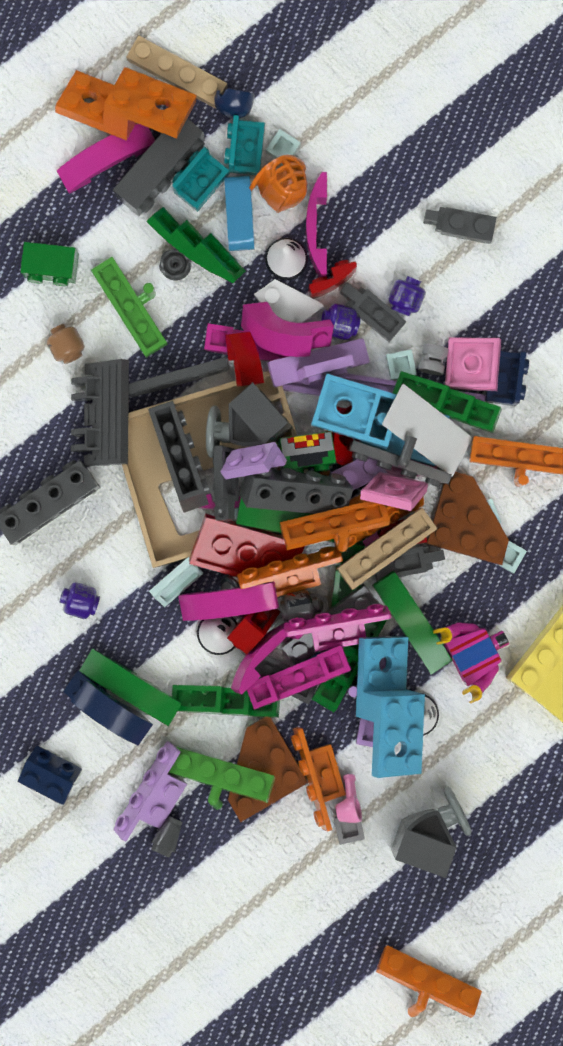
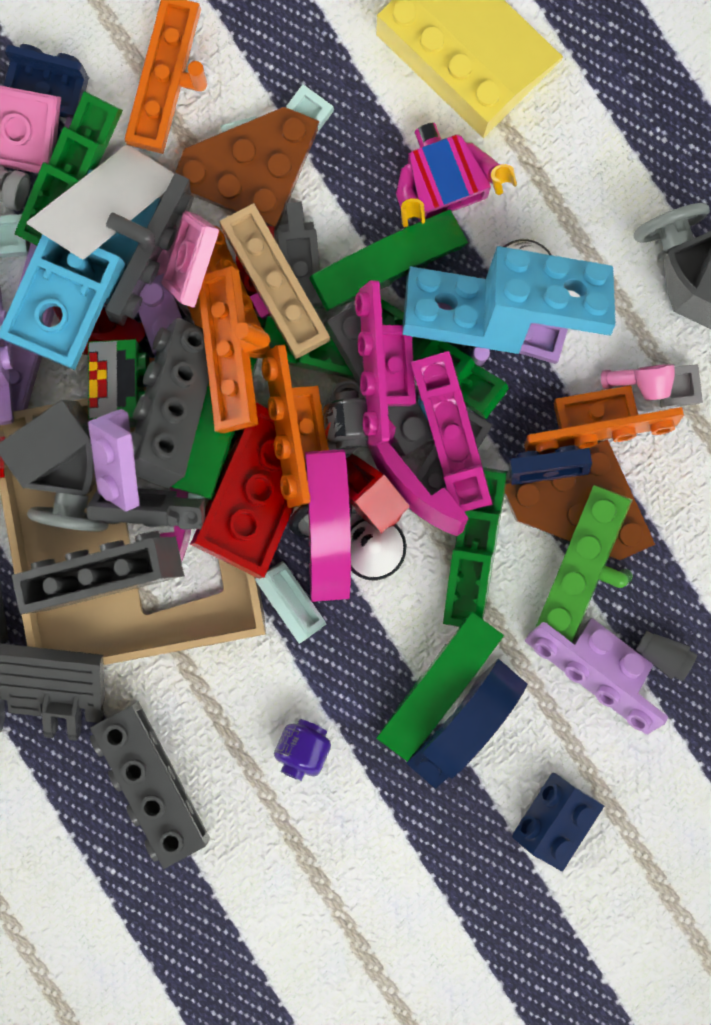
camera: 85 degrees left, 0 degrees up
(287, 755) = (564, 463): none -> dark blue plate

